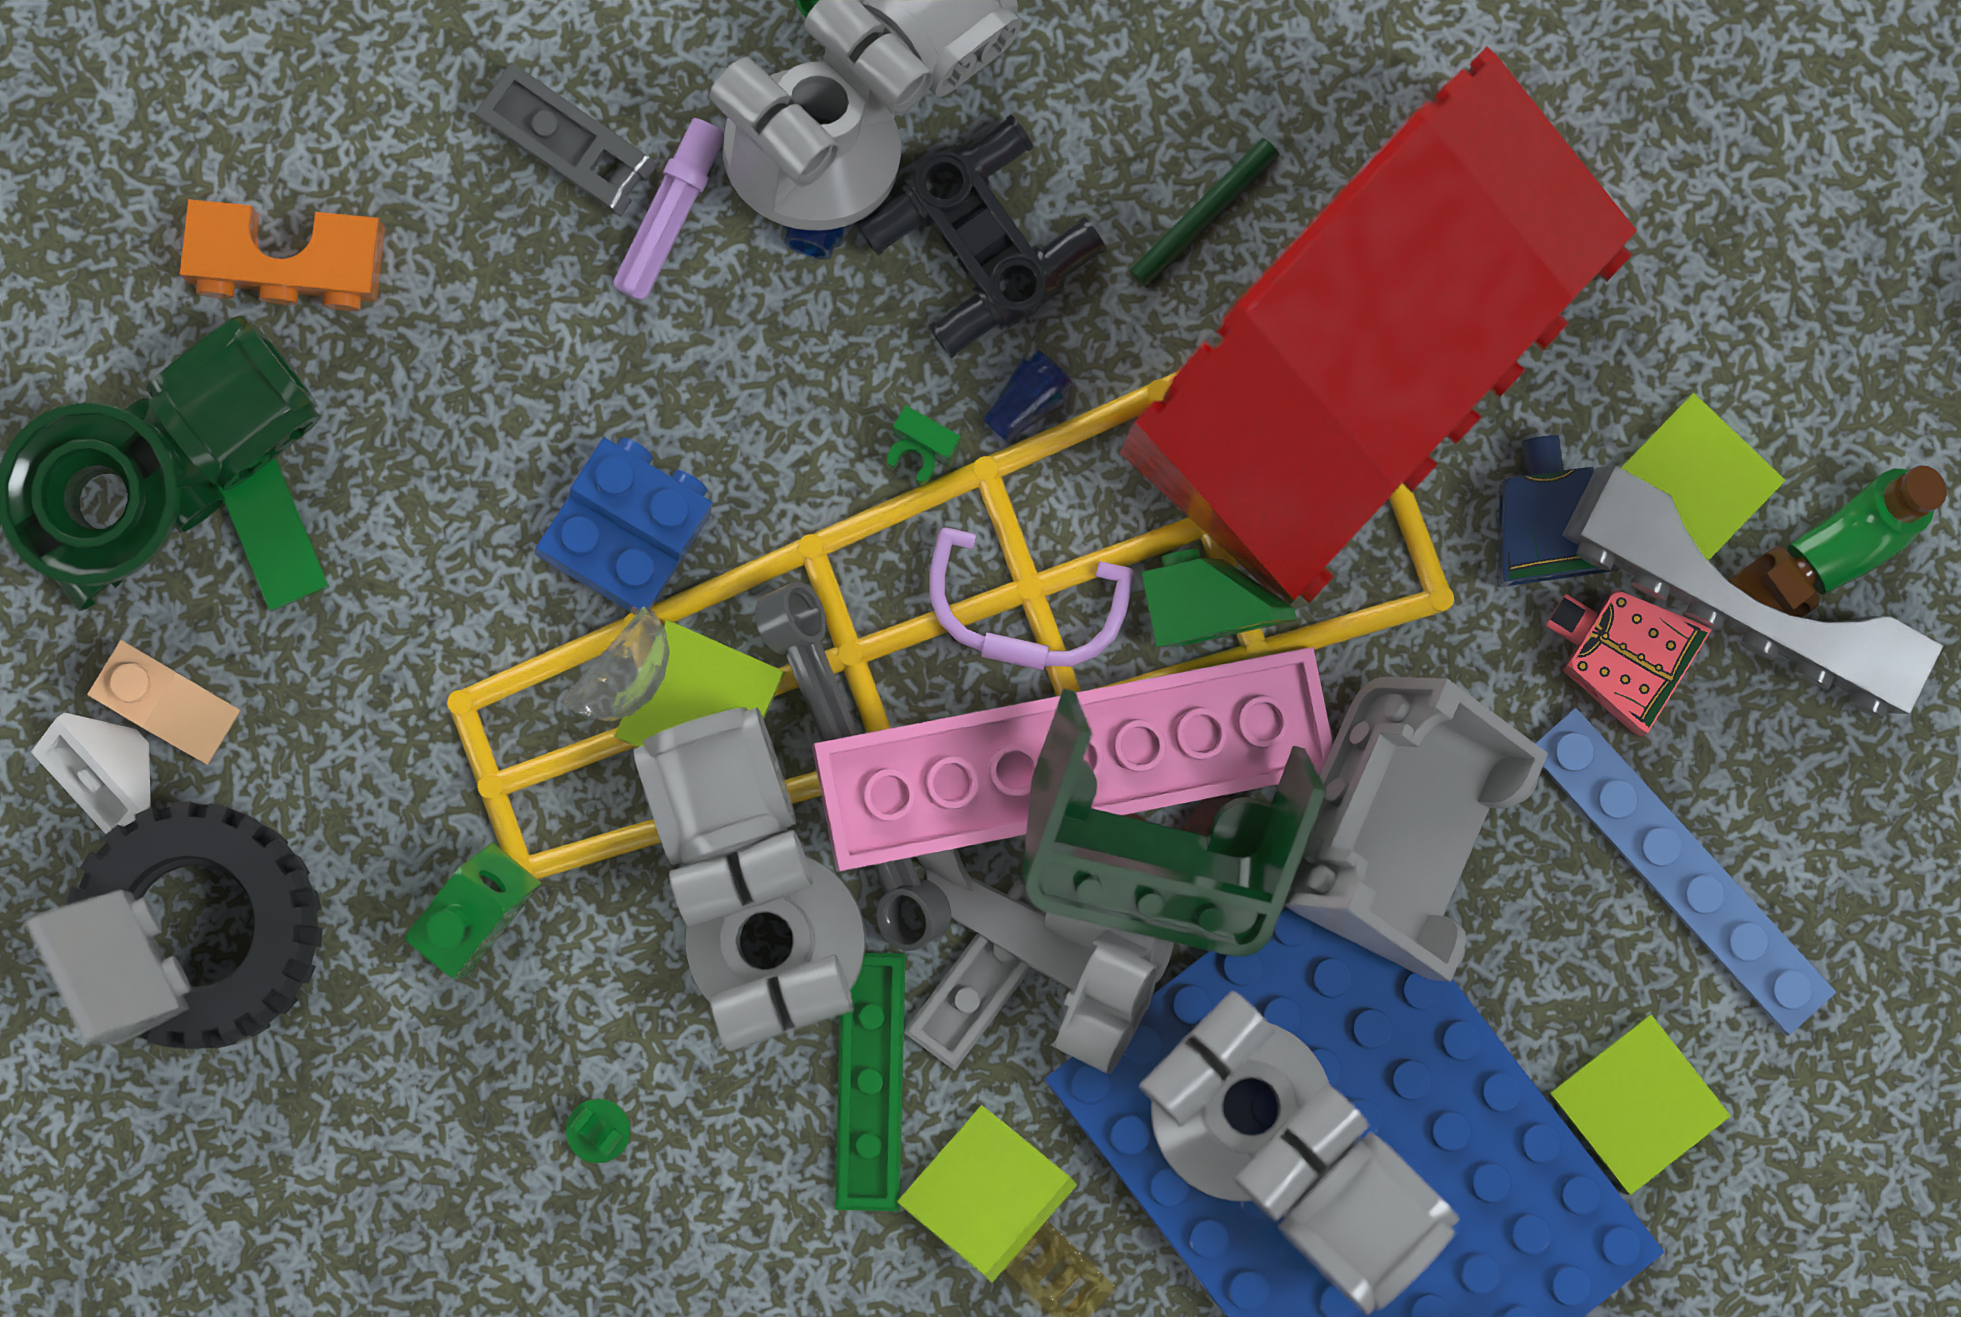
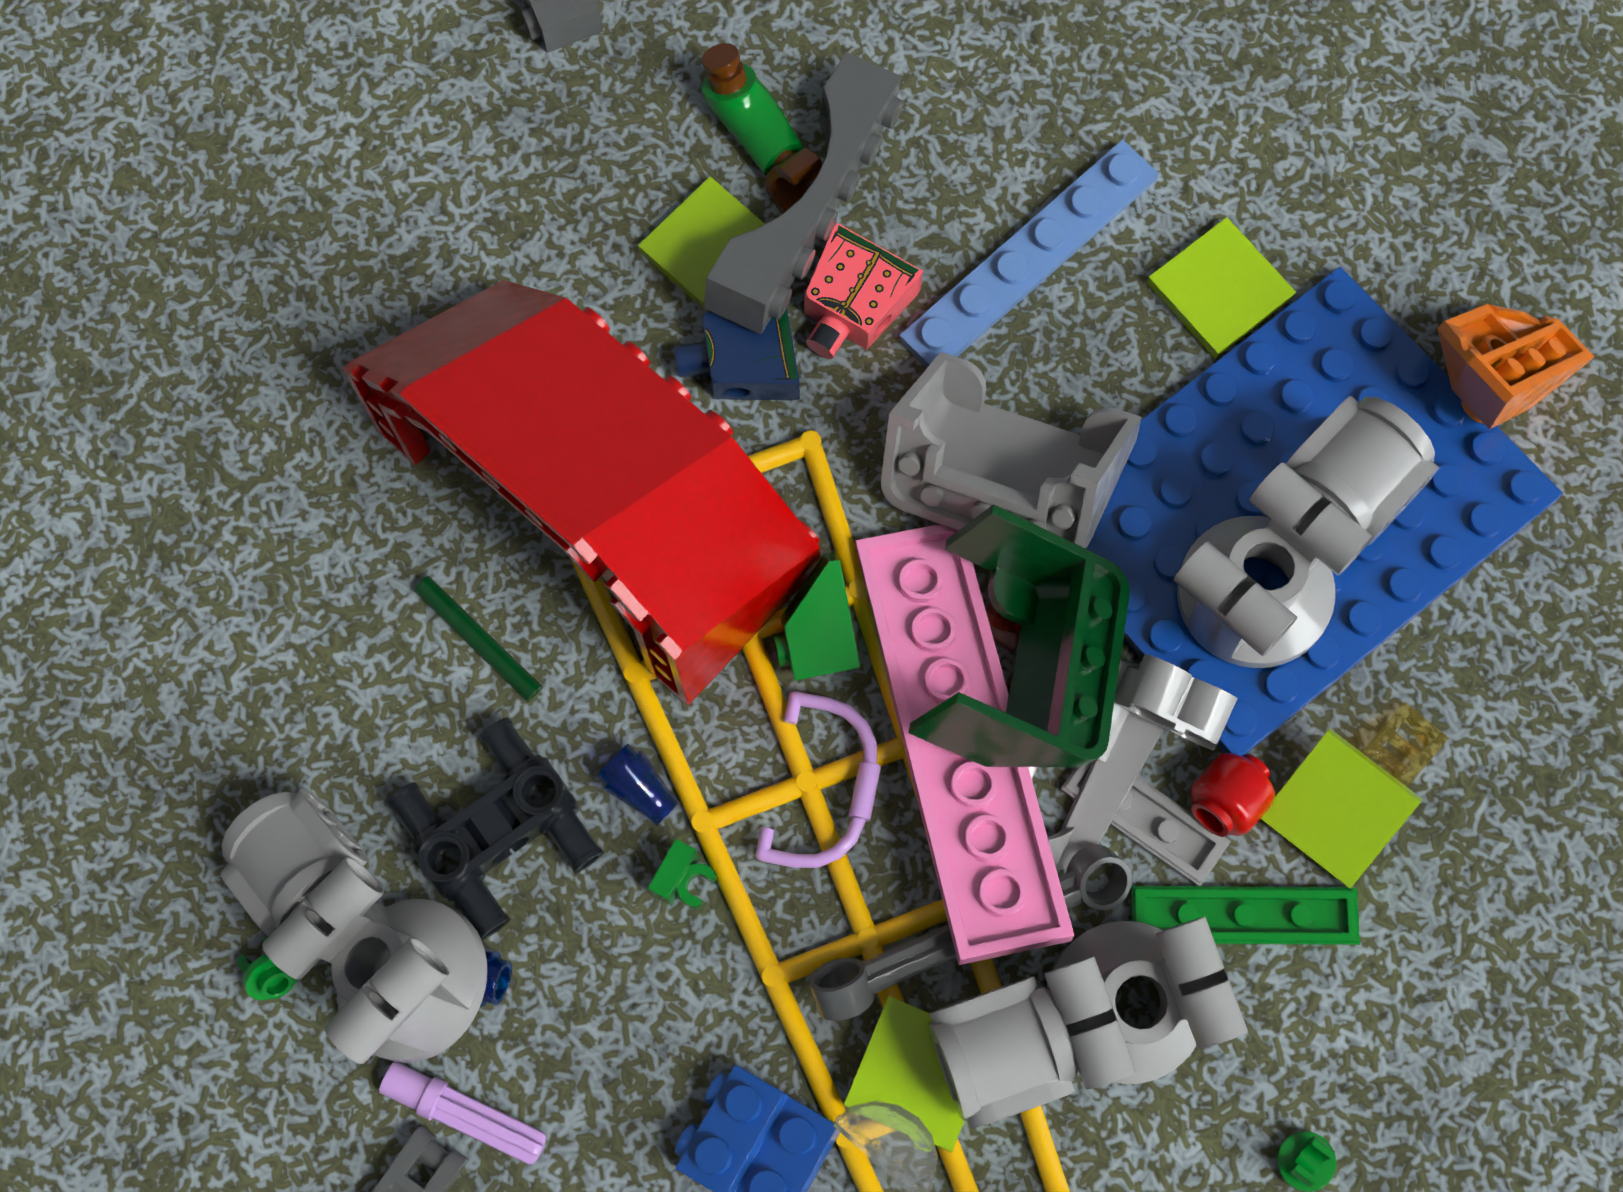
camera: 90 degrees left, 10 degrees down
(1004, 1070) = (1232, 794): none -> red head

